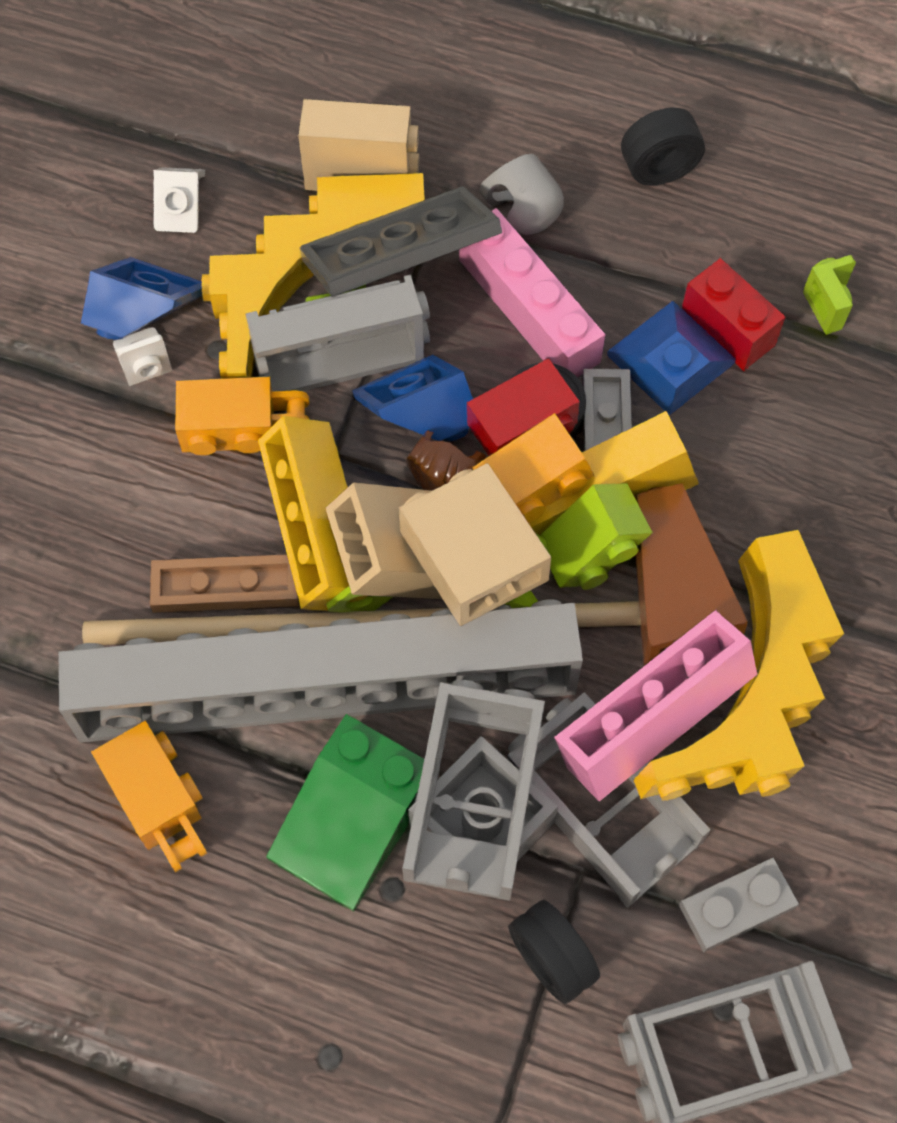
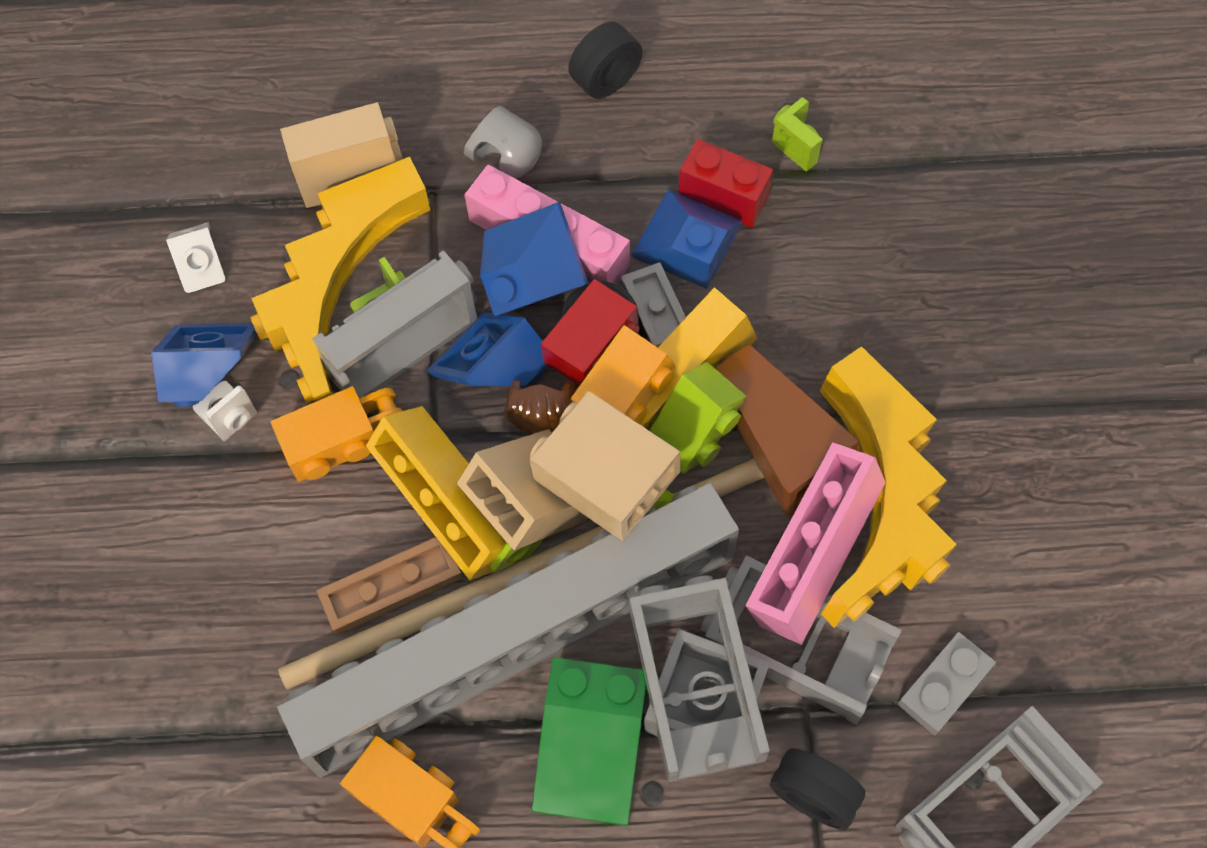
camera: 20 degrees left, 0 degrees up
(399, 240) = (417, 224): dark grey tile -> none
(495, 319) = (530, 260): none -> blue slope

